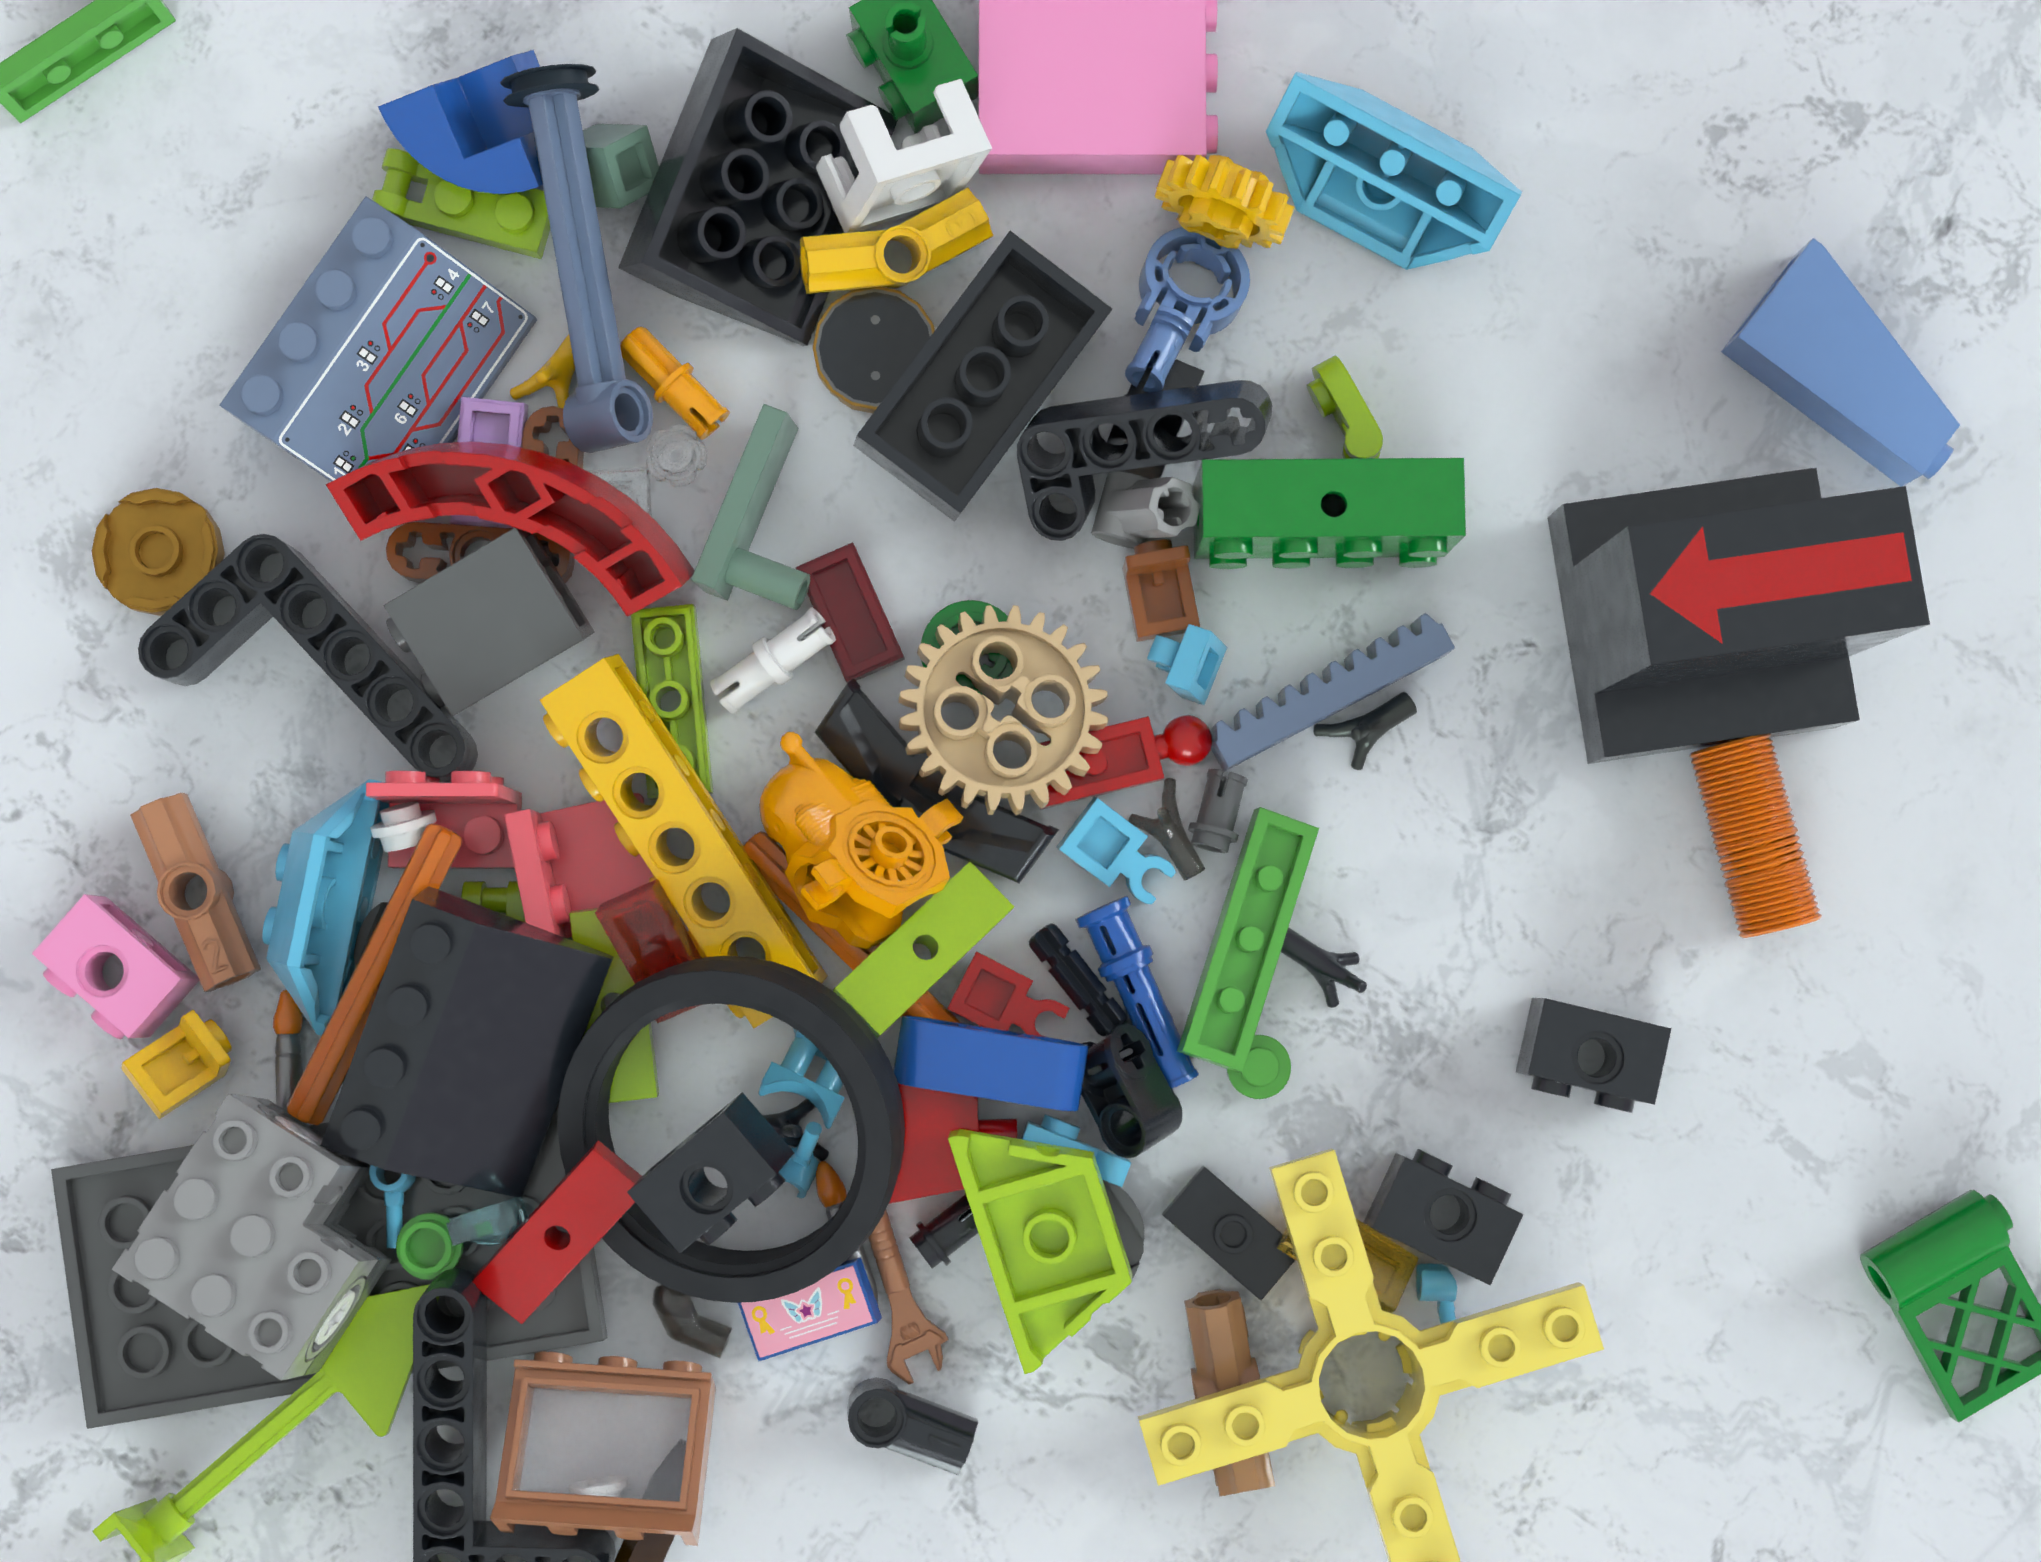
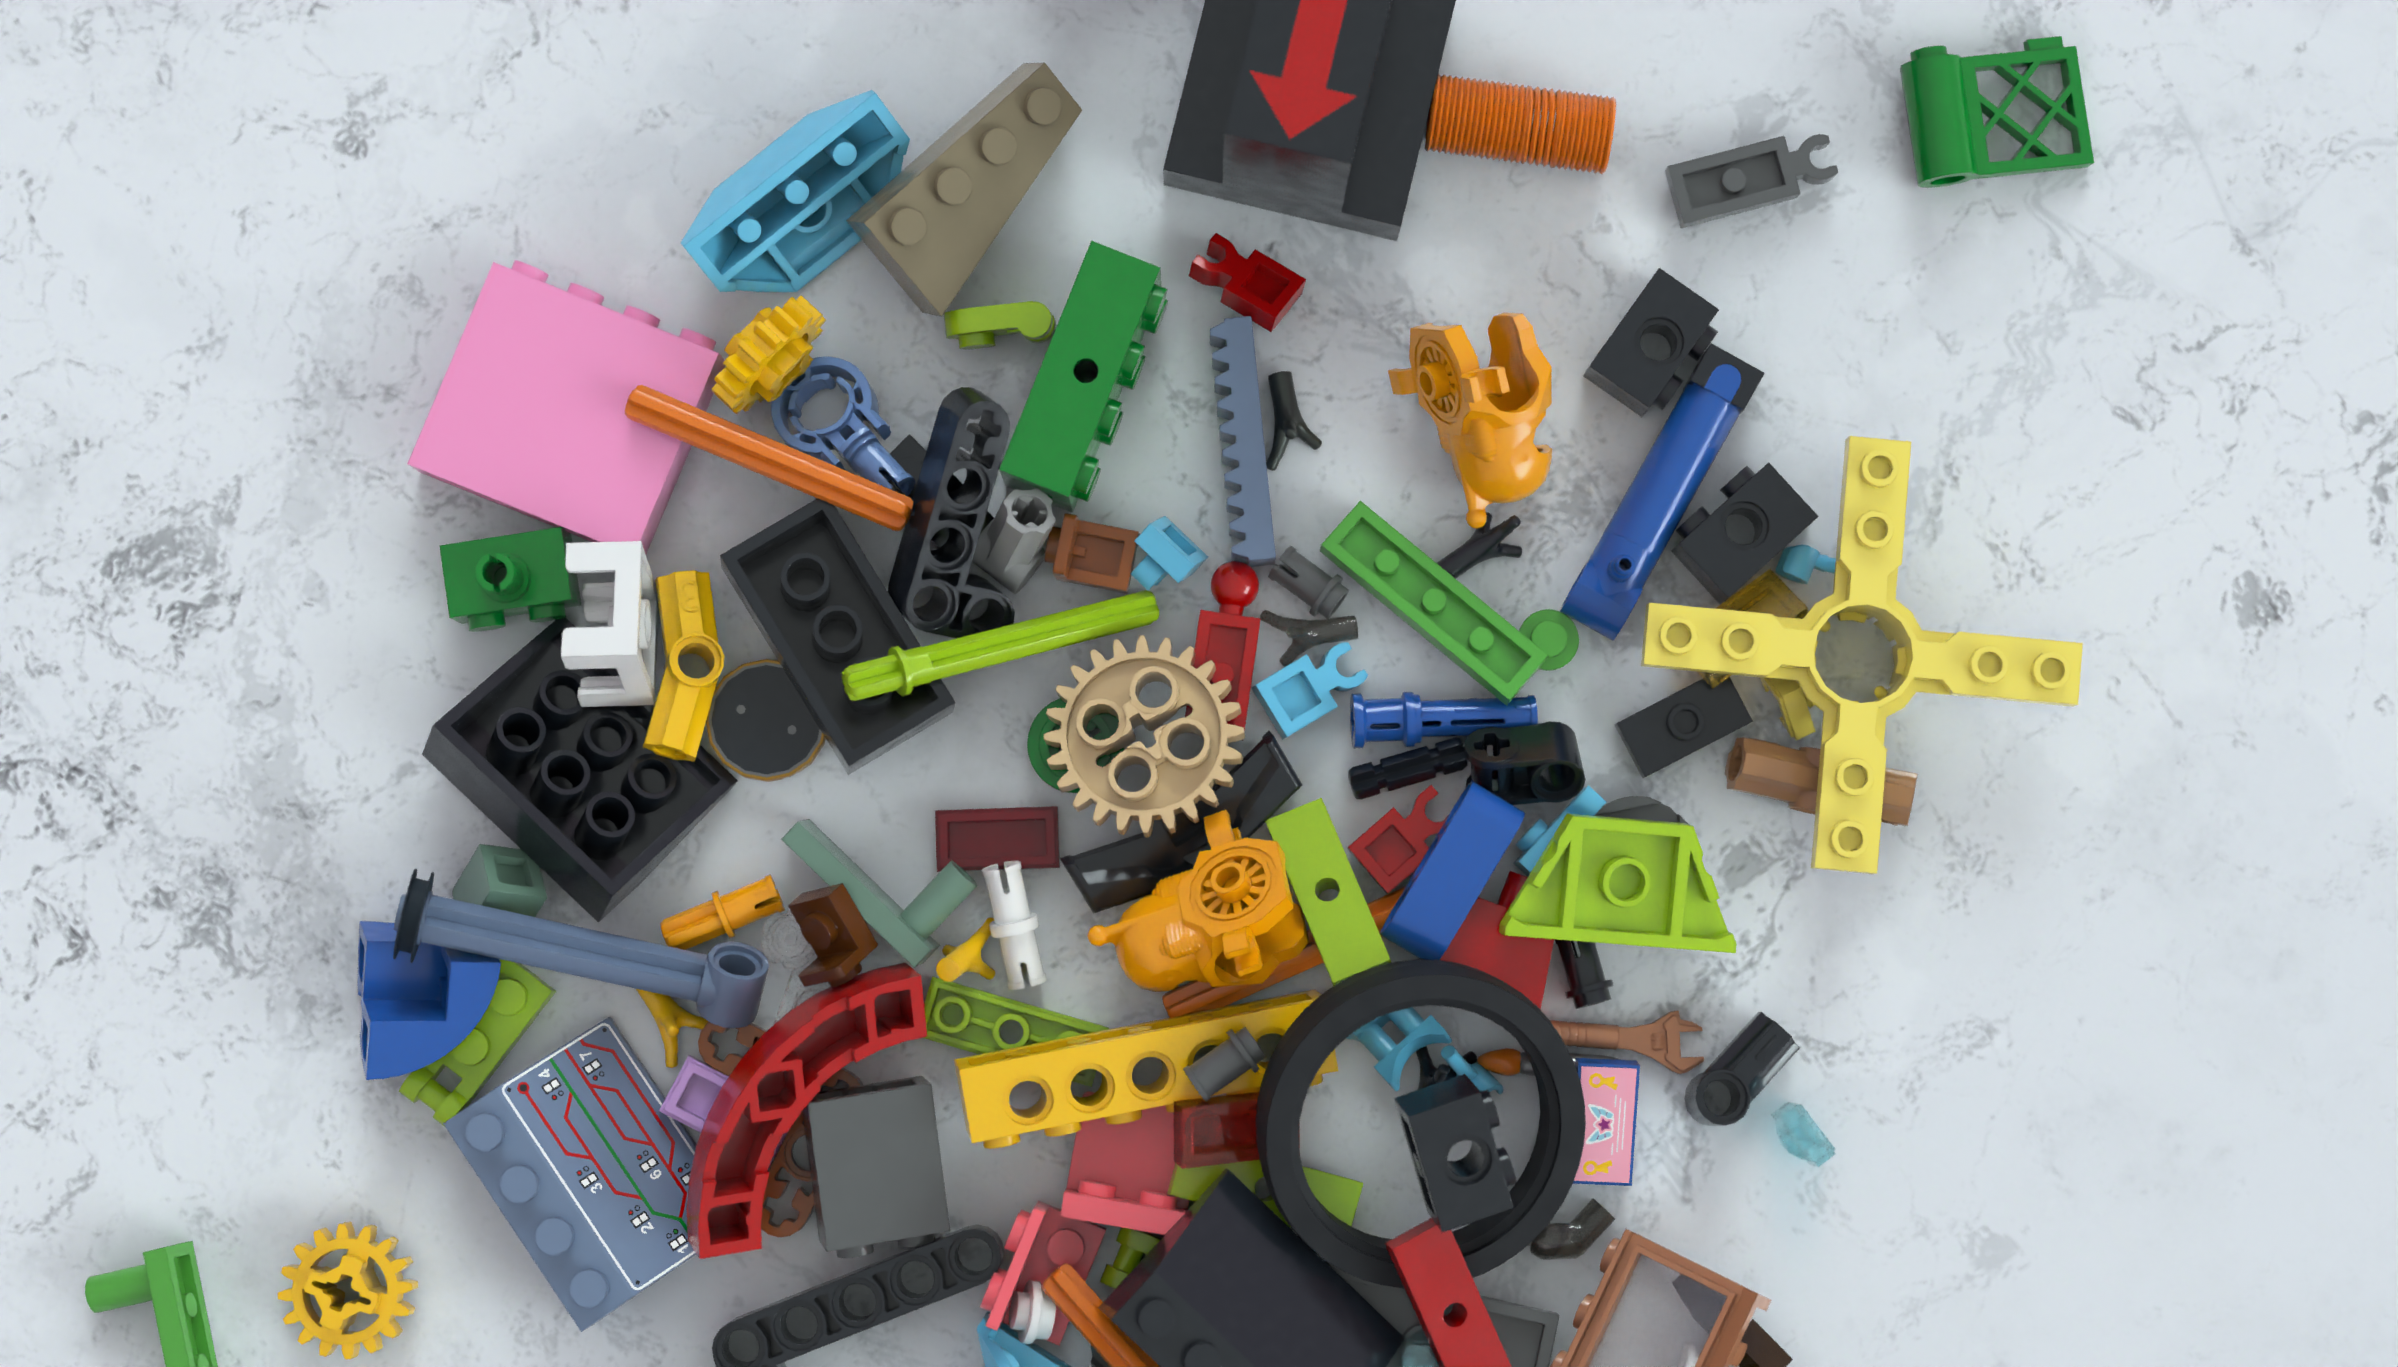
camera: 65 degrees left, 0 degrees up
(160, 160) = (337, 1315): none -> yellow gear
(696, 492) = (834, 932): none -> reddish brown bracket
(713, 913) = (1225, 1063): none -> dark grey pin
(722, 627) = (966, 957): none -> yellow bar
(873, 1510) = (1802, 1135): none -> clear light blue tile
(983, 466) = (922, 665): none -> lime axle
(1123, 241) = (769, 458): none -> orange axle
(1292, 1334) = (1793, 706): none -> light yellow tile
(1436, 921) = (1487, 412): none -> light orange helmet
(1451, 1120) = (1661, 491): none -> blue piece
(1459, 322) = (963, 188): none -> dark tan wedge
(1484, 639) = (1251, 285): none -> red plate
(1794, 1079) = (1743, 179): none -> dark grey plate

